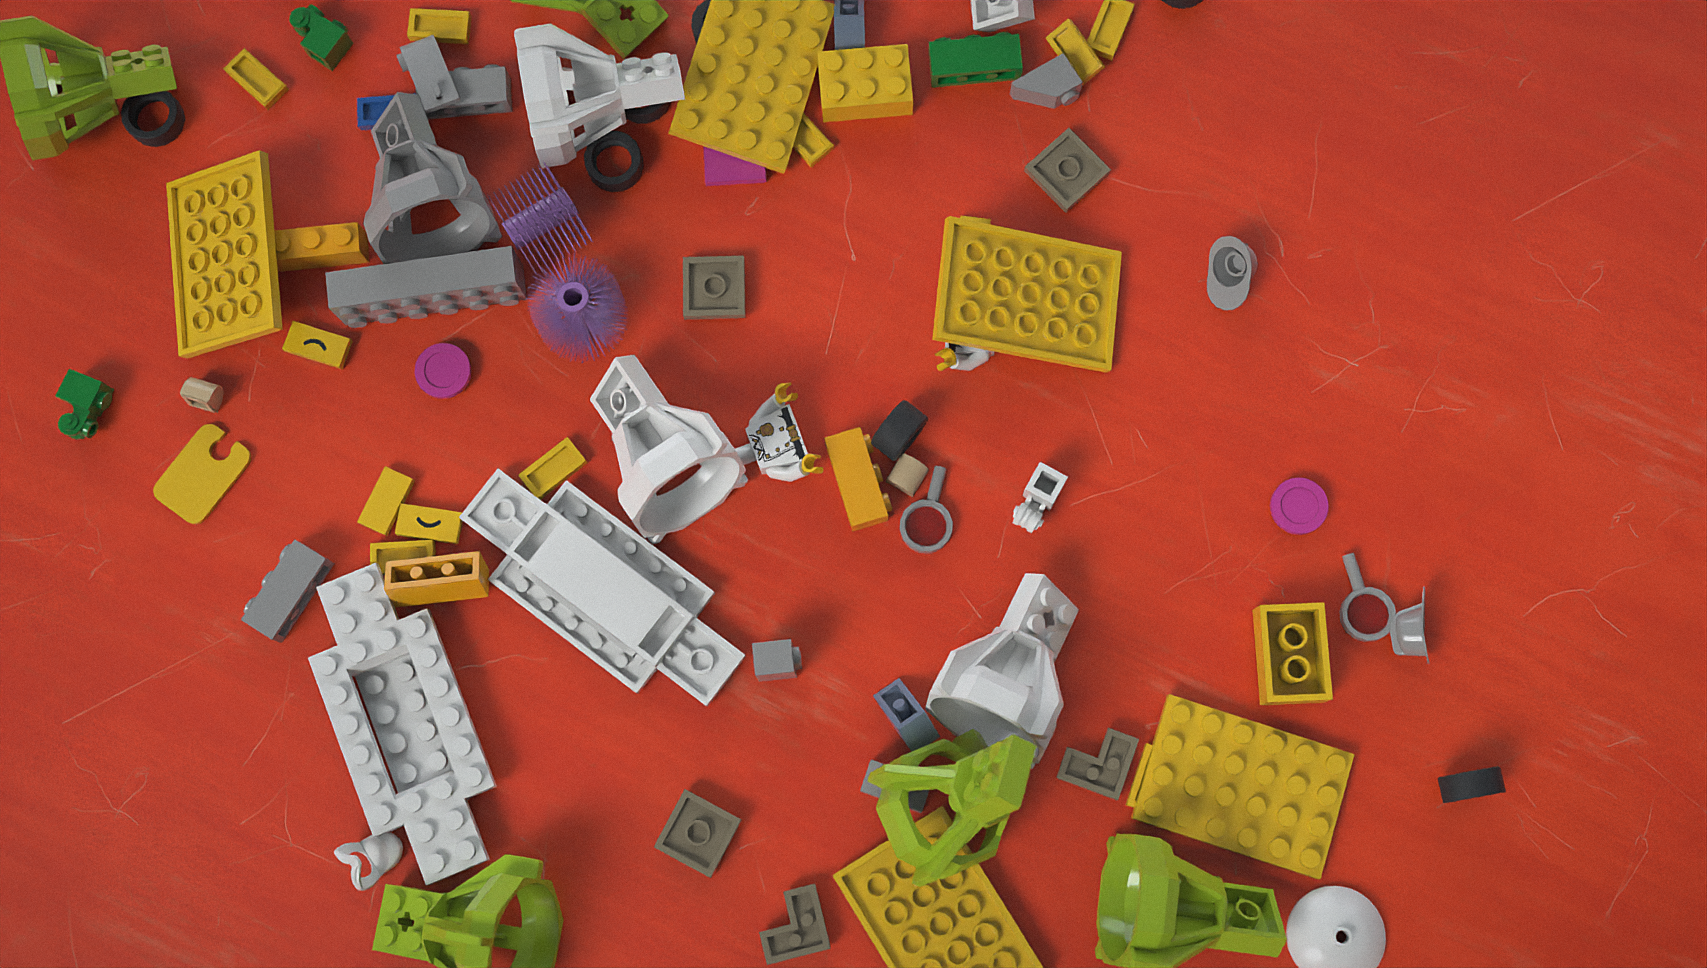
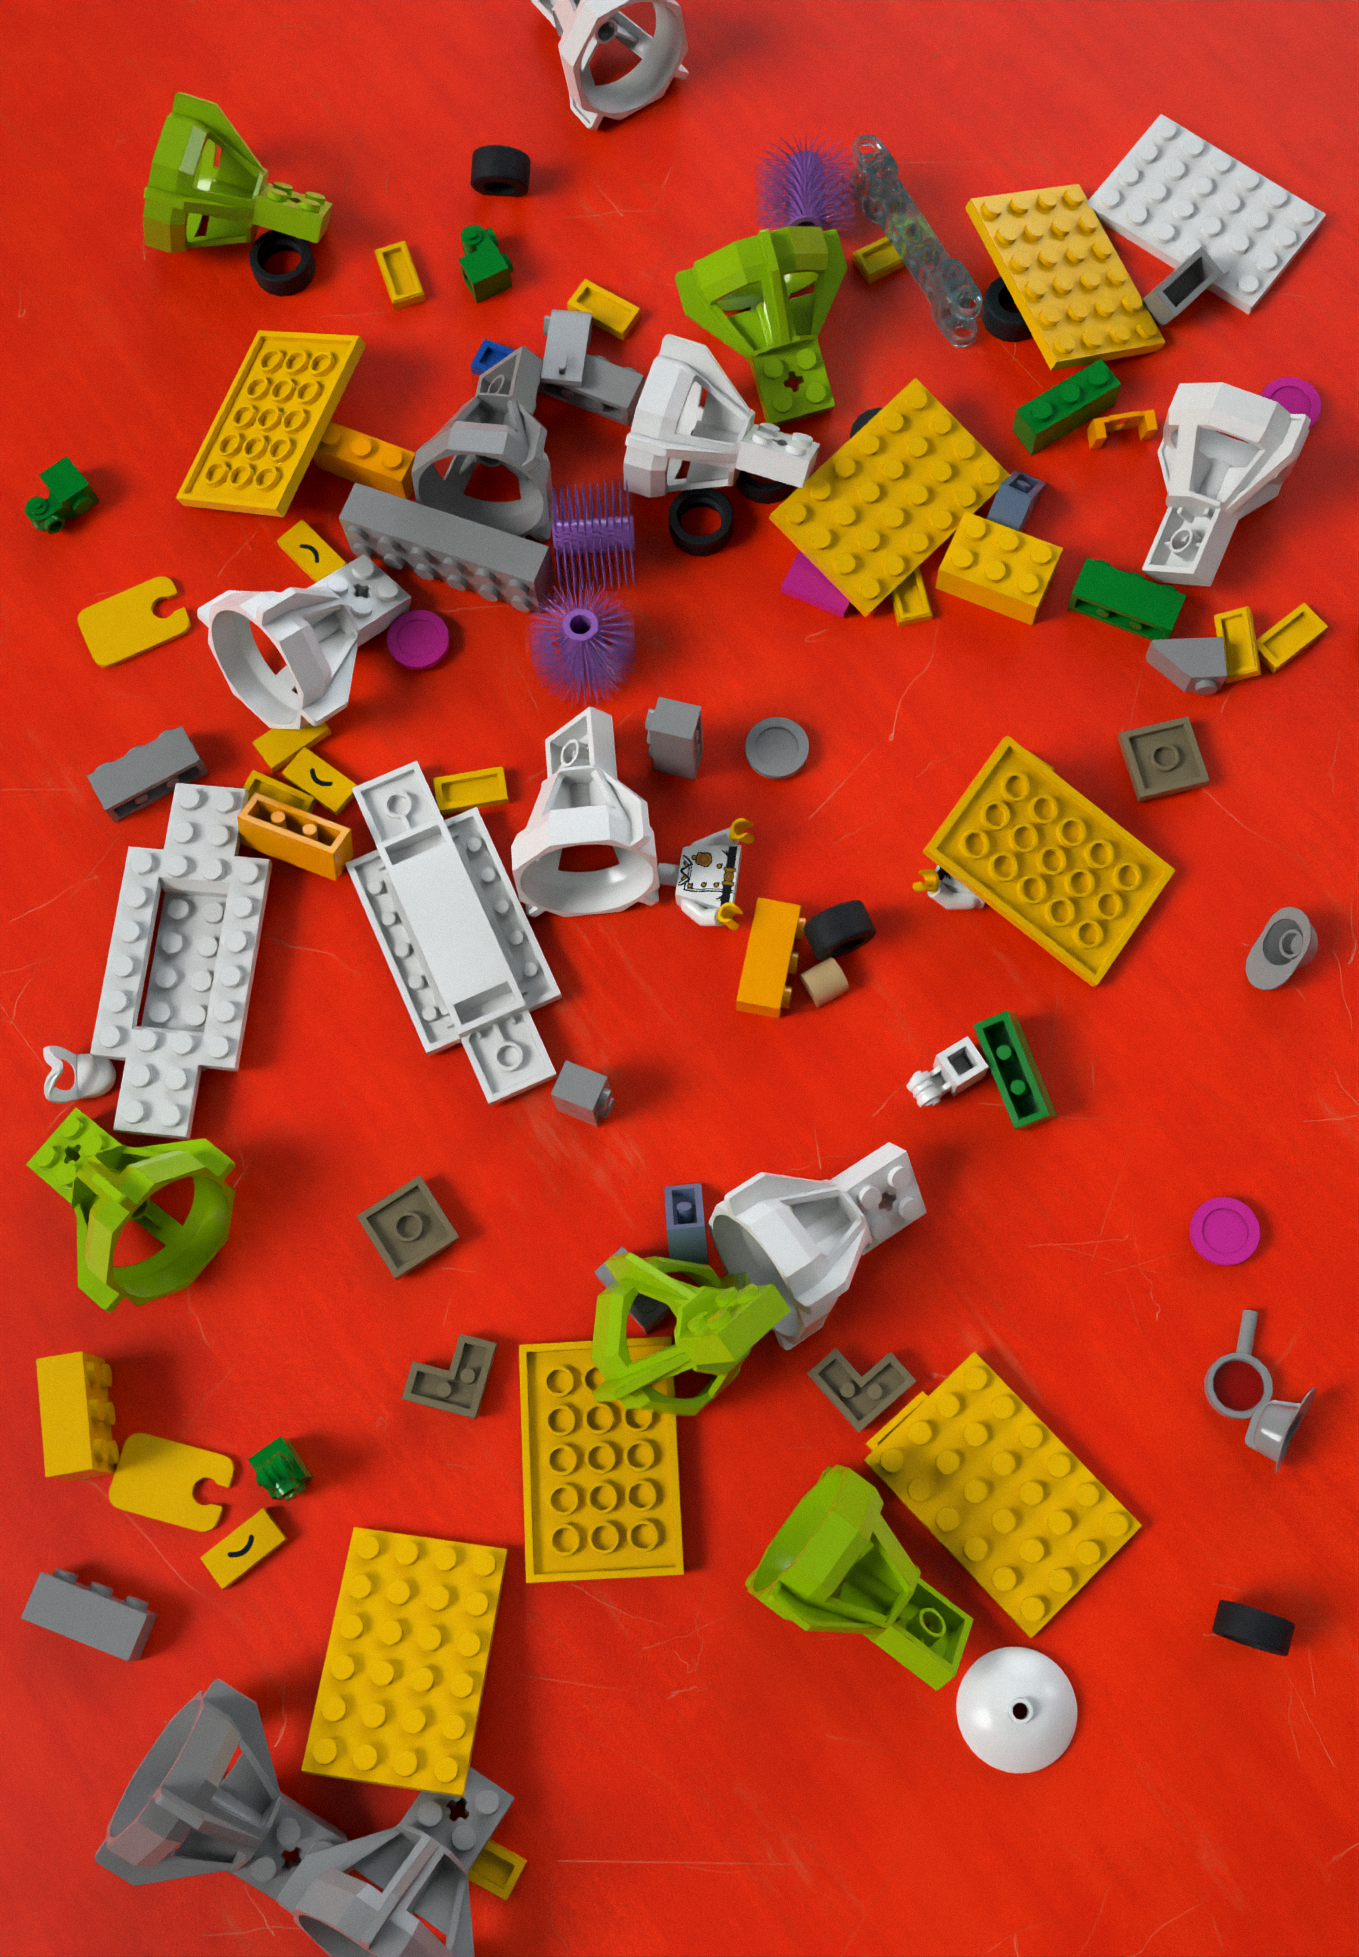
camera: 30 degrees right, 5 degrees down
(202, 394) = (176, 545): tan brick -> none
(359, 409) = (314, 633): none -> white plate
(693, 347) = (675, 737): none -> light grey brick
(713, 287) = (733, 693): dark tan plate -> none
(772, 312) = (777, 748): none -> light grey piece
(927, 523) = (817, 1041): piece -> none
(1087, 468) = (1015, 1071): none -> green brick
(1292, 654) = (1130, 1381): yellow brick -> none

